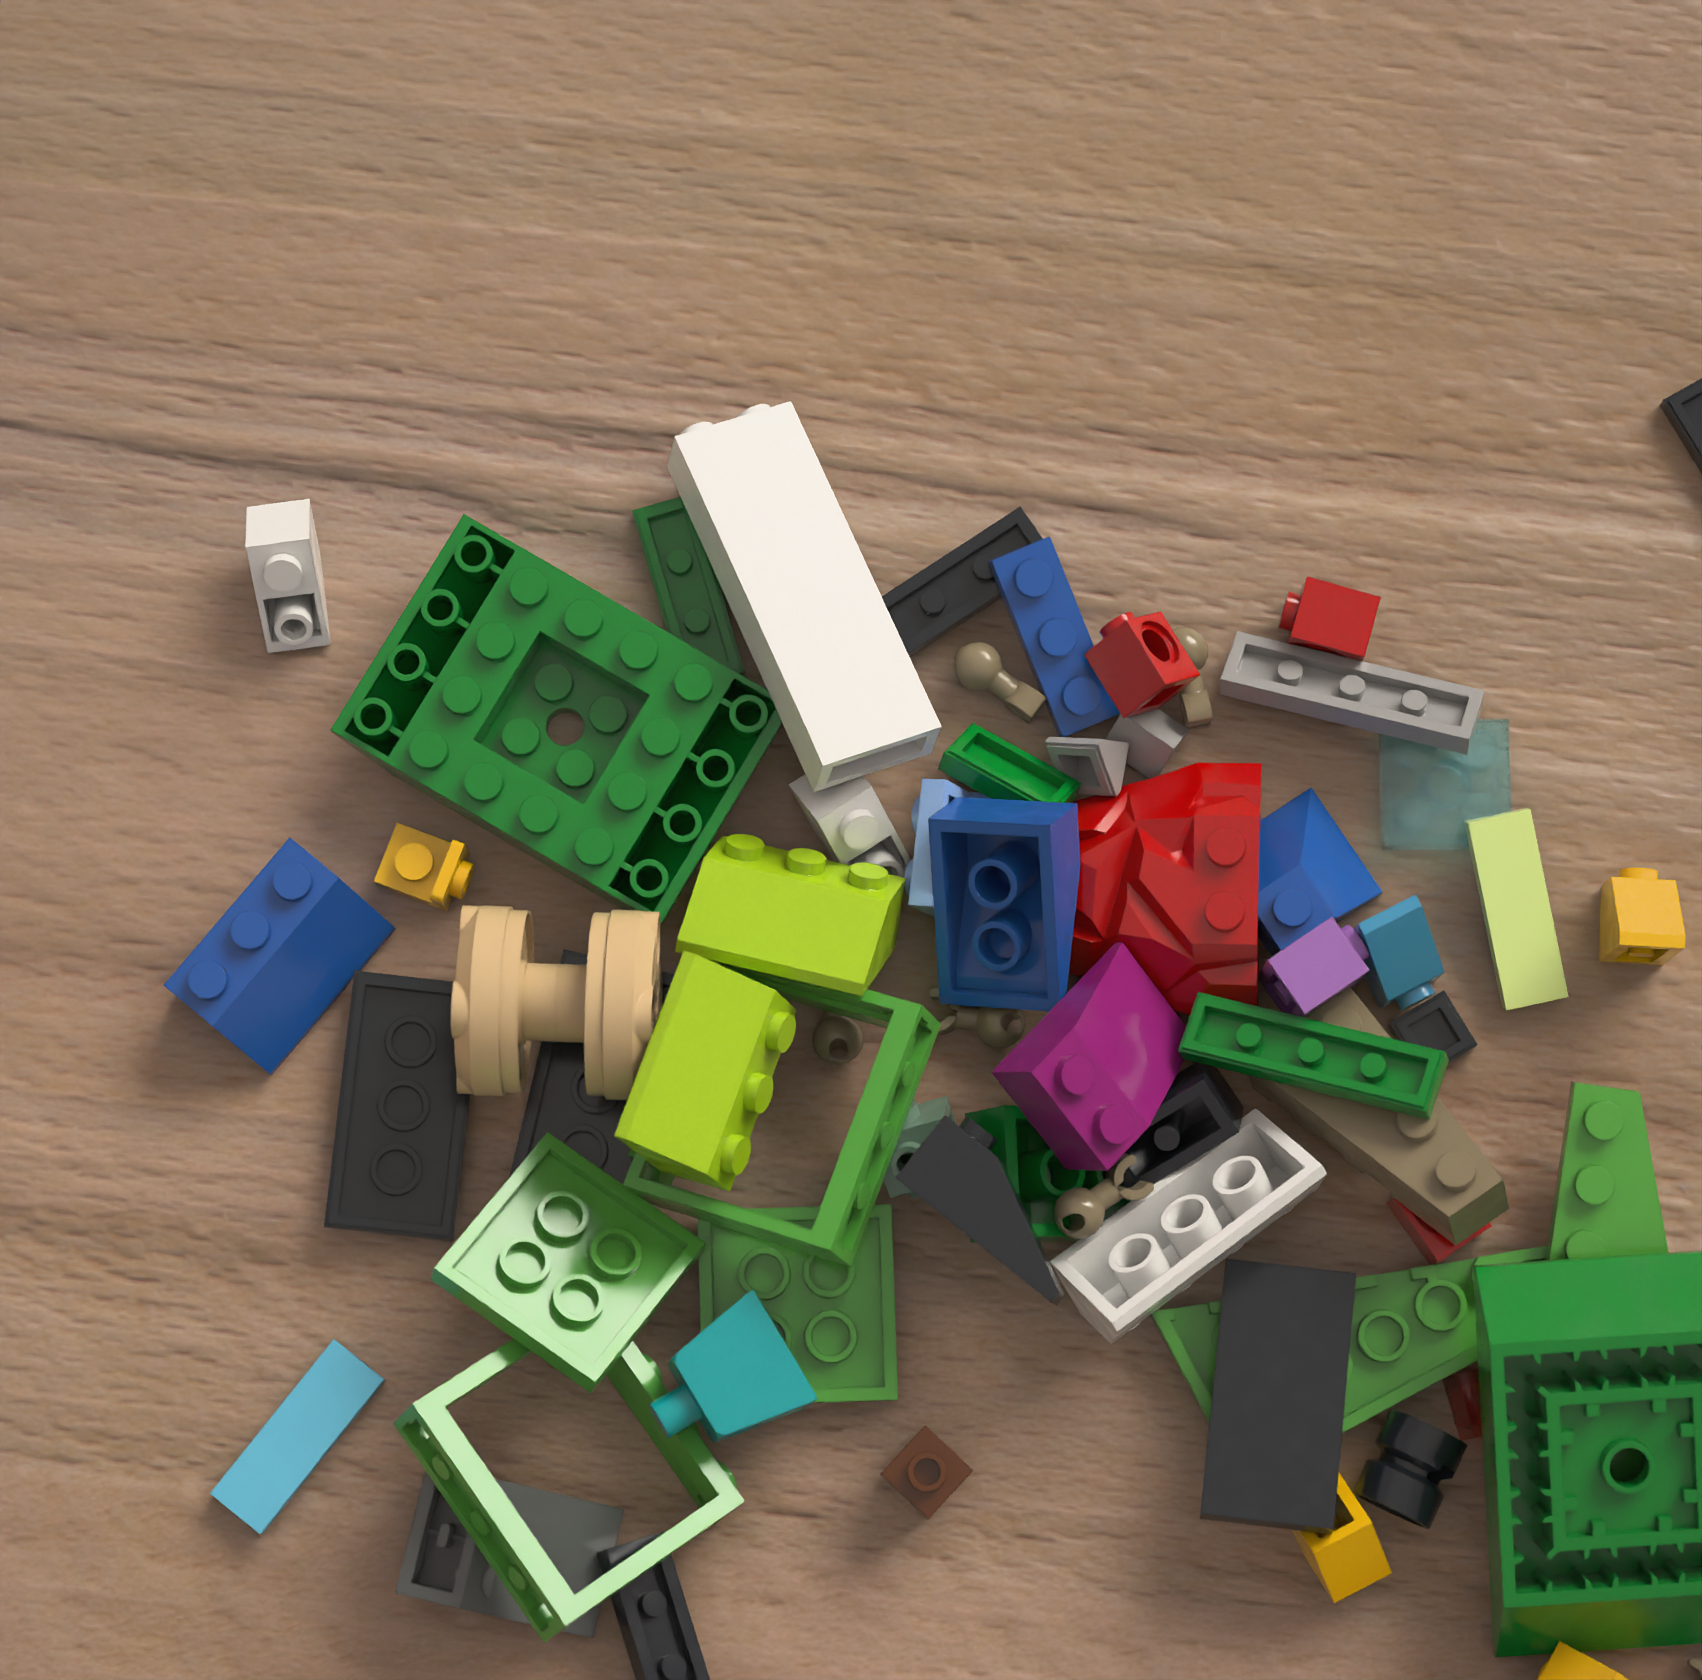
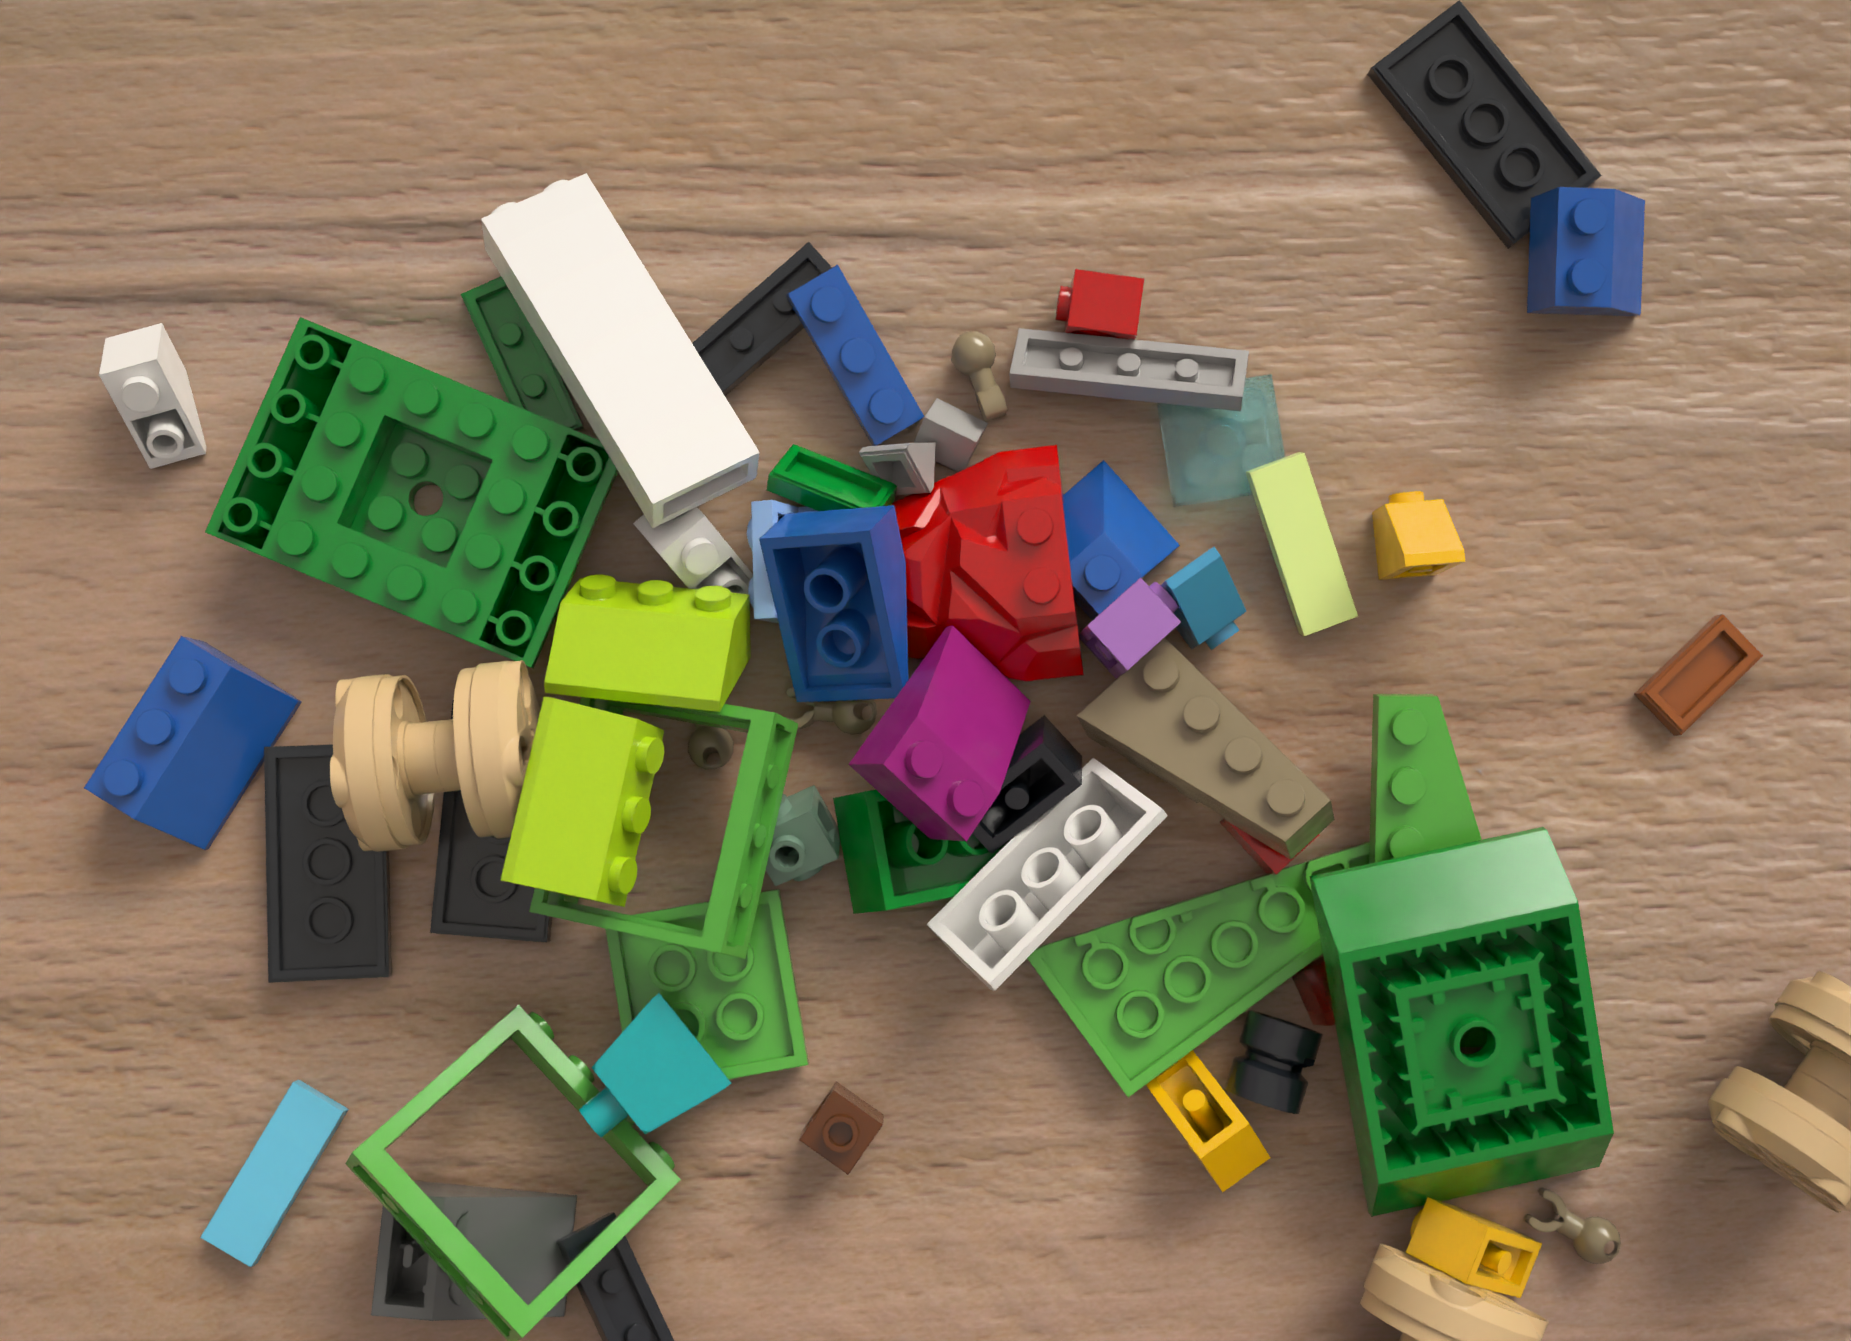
camera: 15 degrees left, 5 degrees up
(425, 867) = (318, 643): yellow bracket -> none
(568, 1262) = (487, 990): bright green plate -> none
(976, 1194) = (851, 882): black slope -> none
(981, 668) = (793, 393): dark tan arm -> none
(1089, 1206) = (955, 870): dark tan arm -> none
(1140, 662) = (935, 368): red brick -> none
(1278, 1396) = (1149, 1018): black tile -> none
(1314, 1055) = (1141, 706): green tile -> none
(1434, 1026) = (1240, 666): black tile -> none

